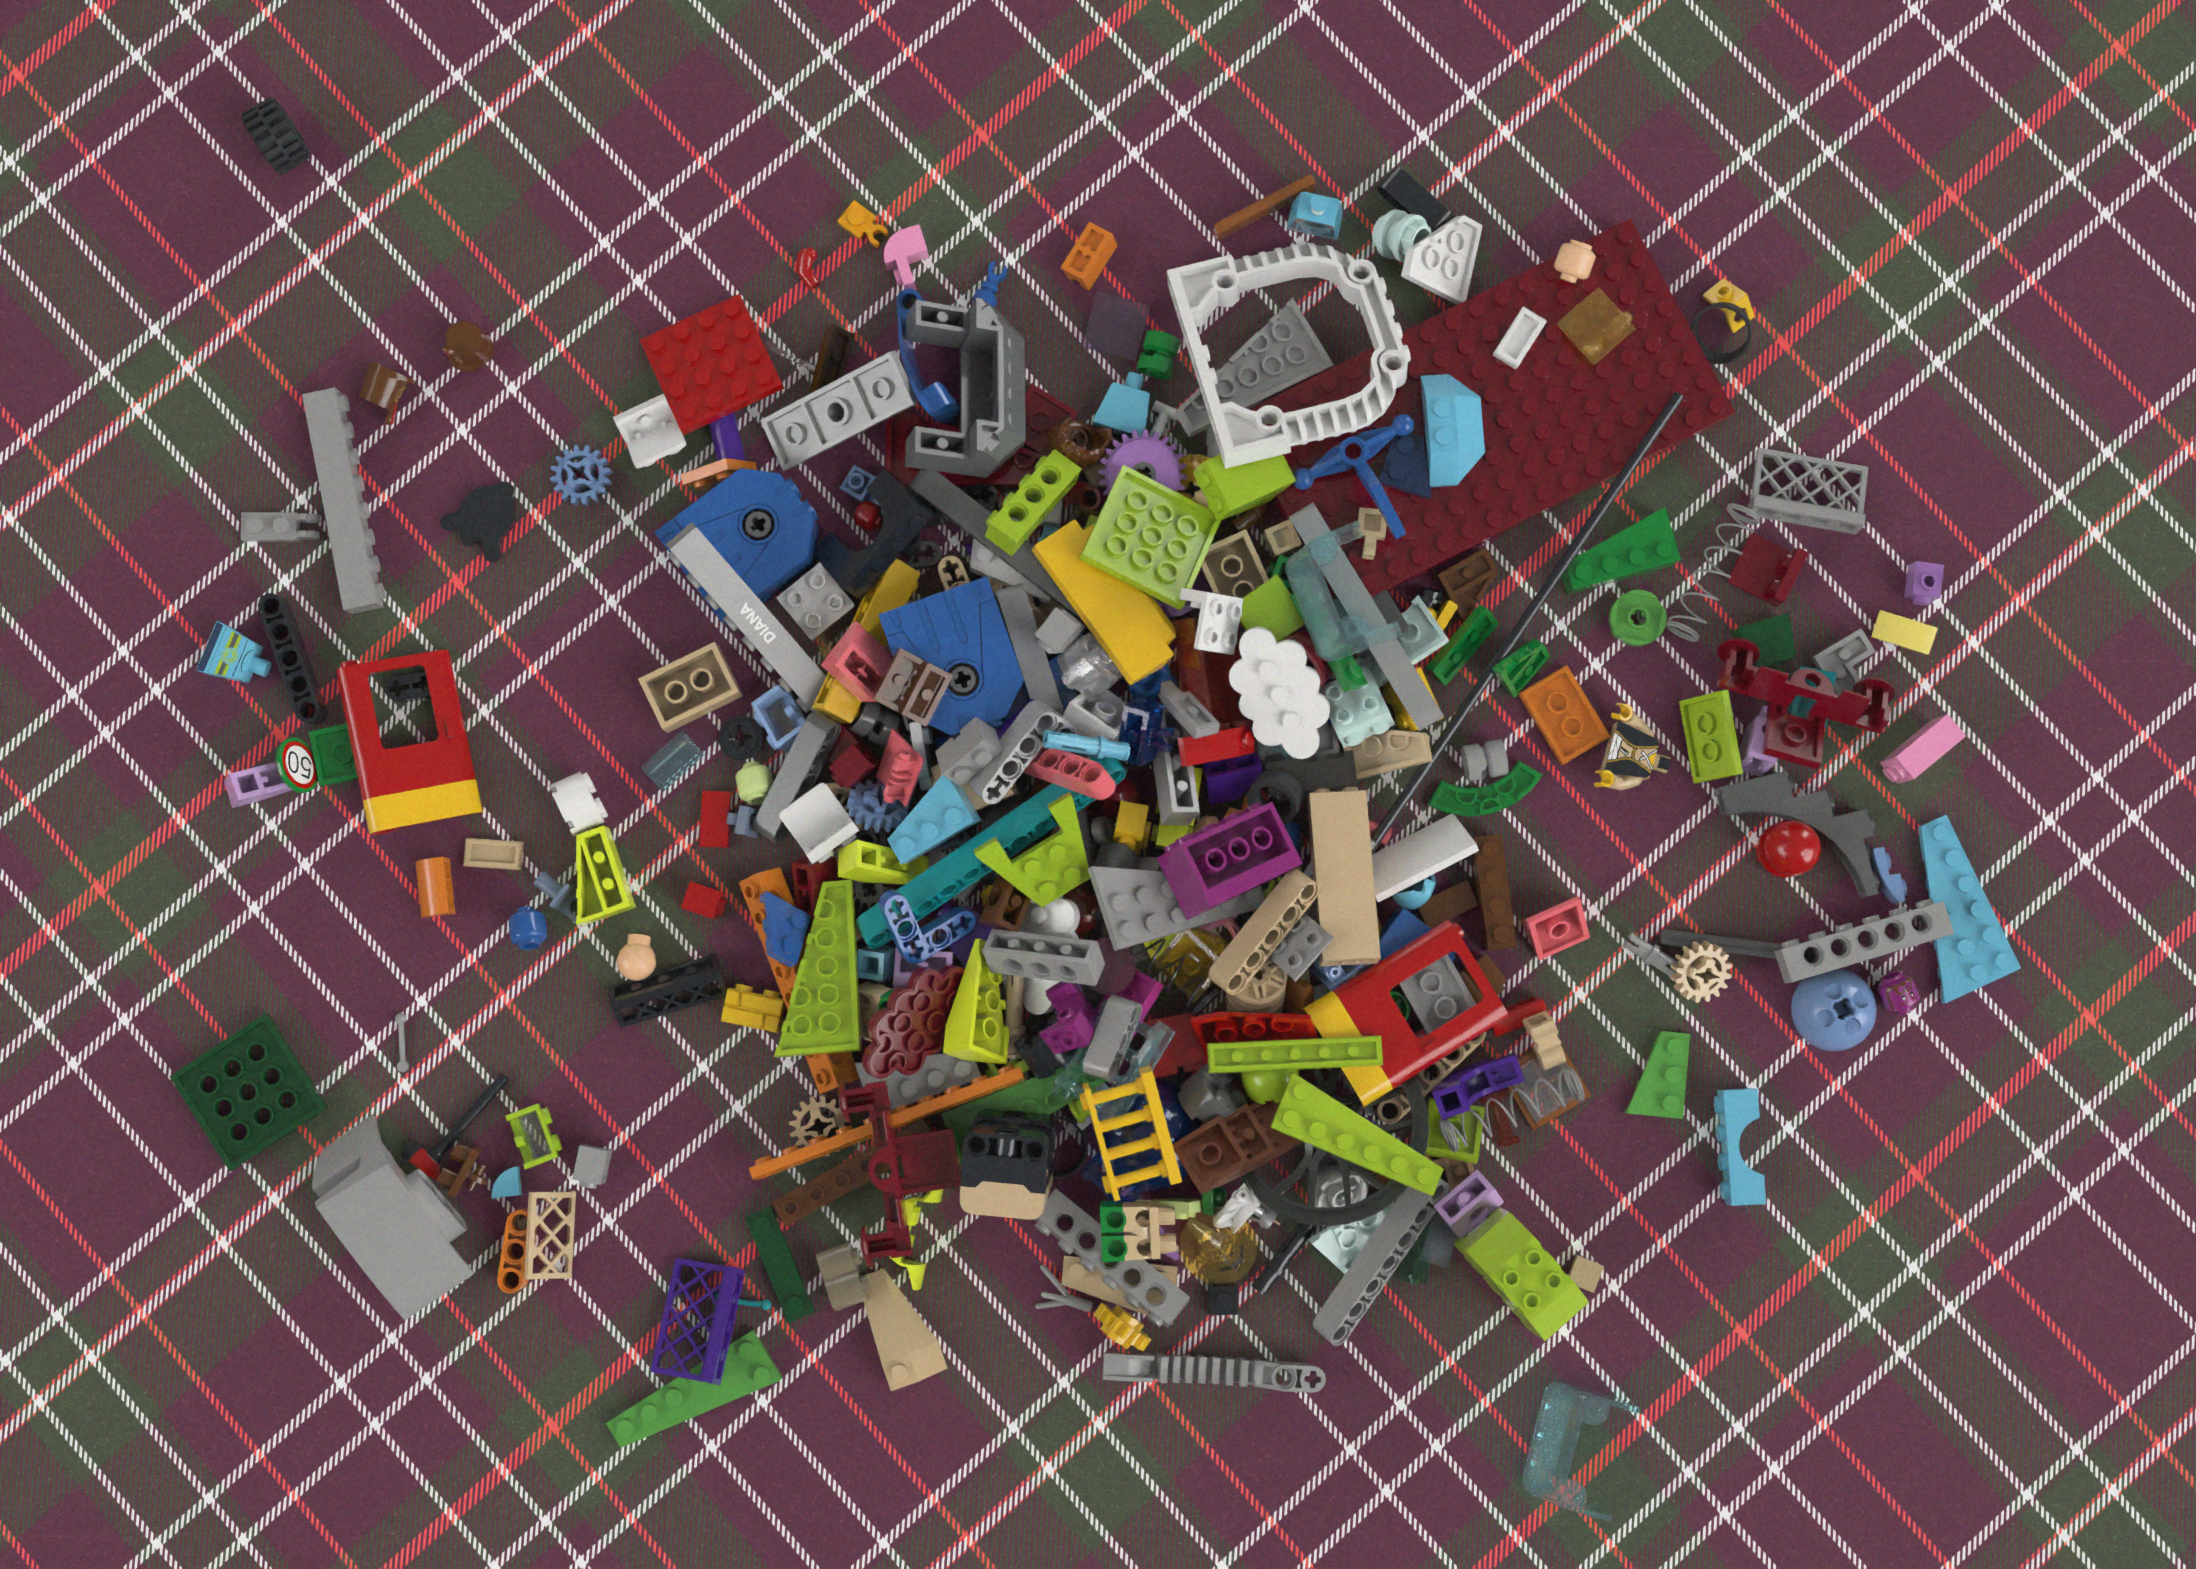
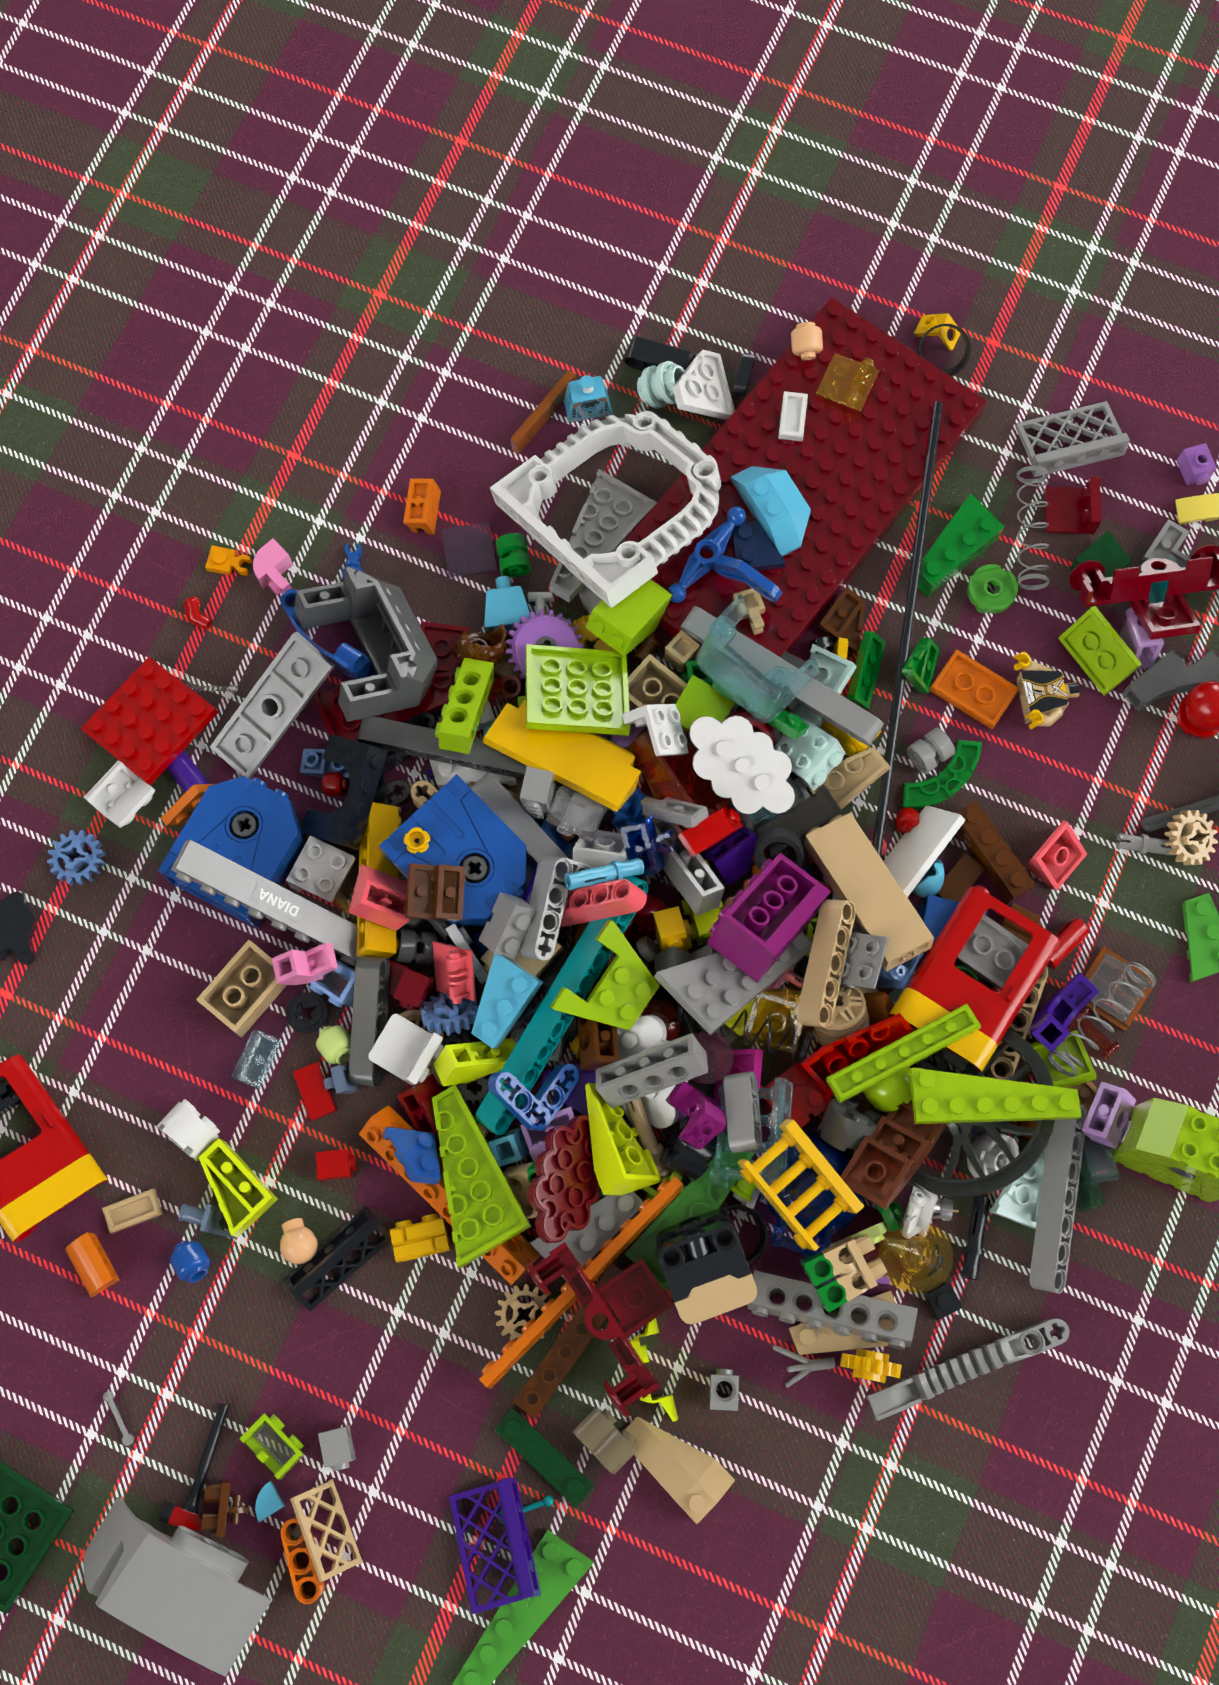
camera: 25 degrees left, 10 degrees down
(757, 695) = (304, 967): none -> bright pink brick
(832, 357) = (247, 668): dark brown plate -> none
(918, 619) = (409, 840): none -> yellow plate
(971, 1296) = (729, 1402): none -> light grey brick
(1425, 818) = (906, 820): none -> red piece
(1496, 261) = (744, 374): none -> black beam
(1547, 1044) = (1104, 955): tan leg -> none

